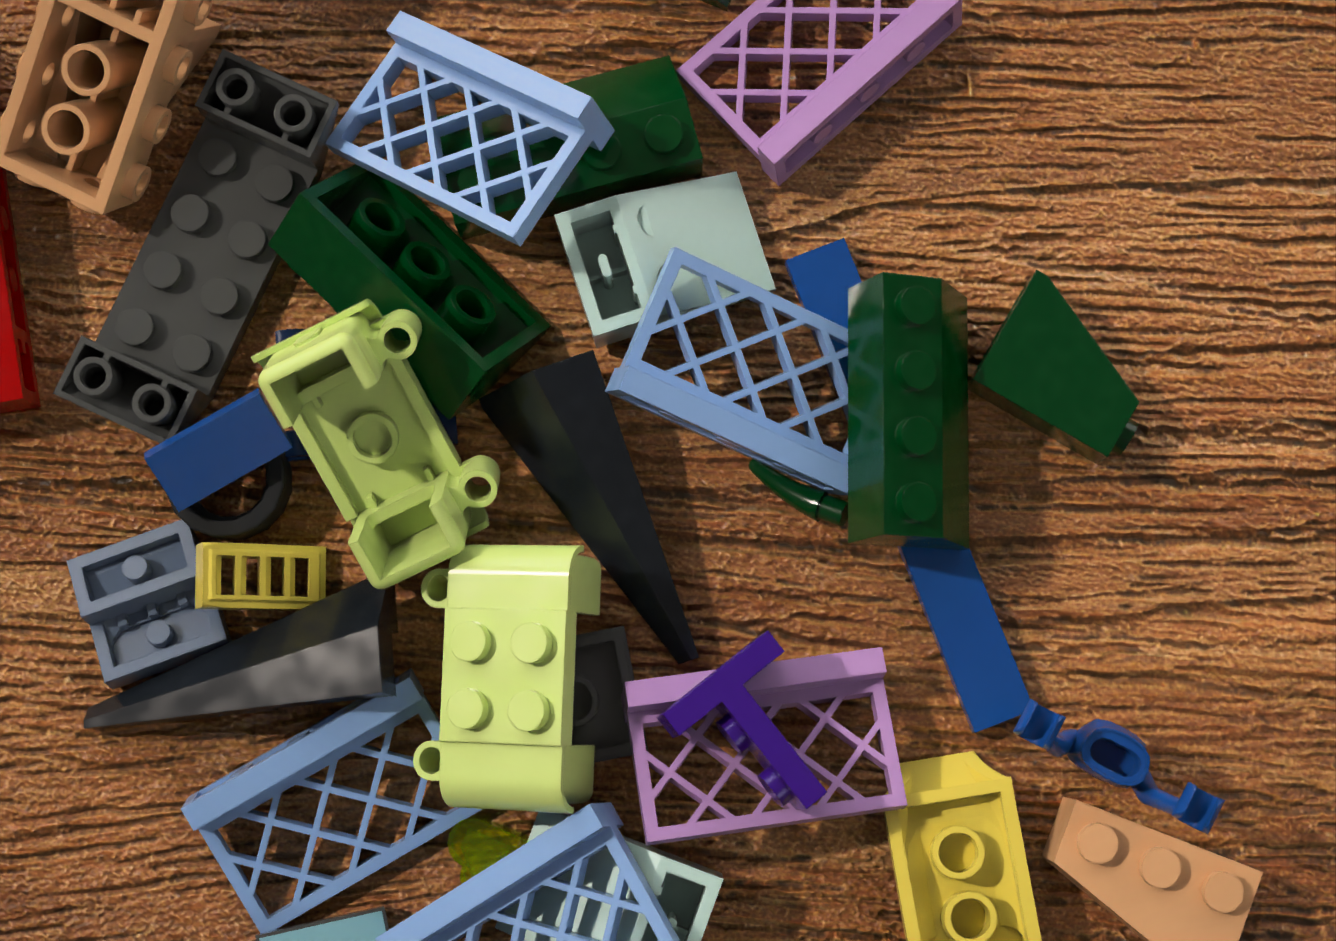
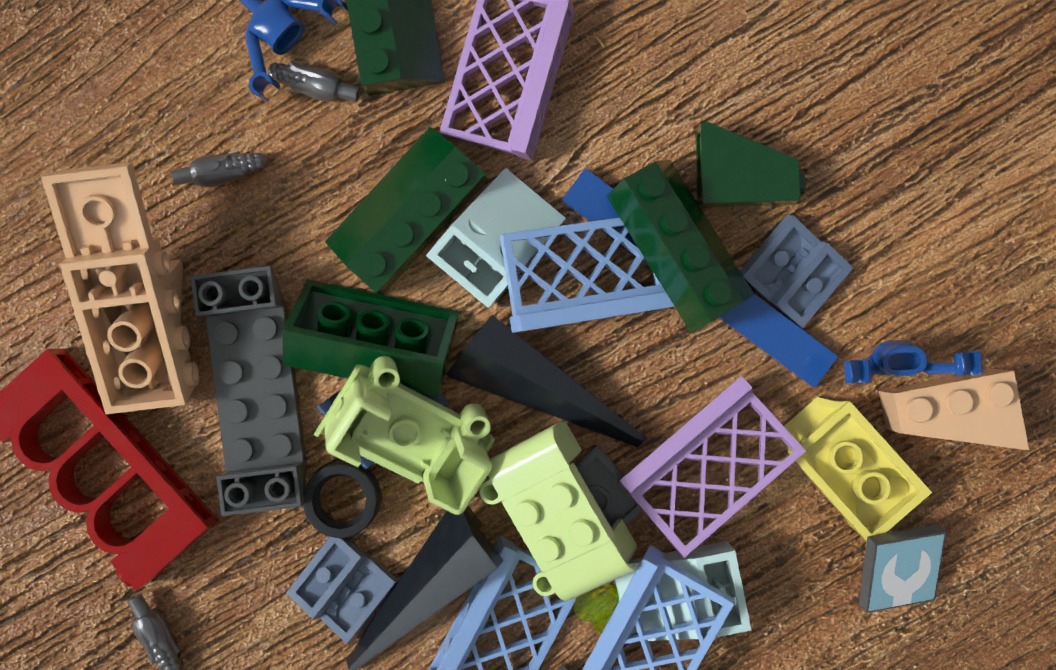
camera: 30 degrees left, 5 degrees up
(208, 576) = (366, 559): light yellow slope -> none
(218, 450) = (326, 494): blue tile -> none
(503, 89) = (352, 204): light blue fence -> none
(746, 723) = (697, 465): dark purple bracket -> none
(807, 500) = (650, 319): dark green helmet -> none
(1046, 556) = (795, 271): none -> sand blue slope

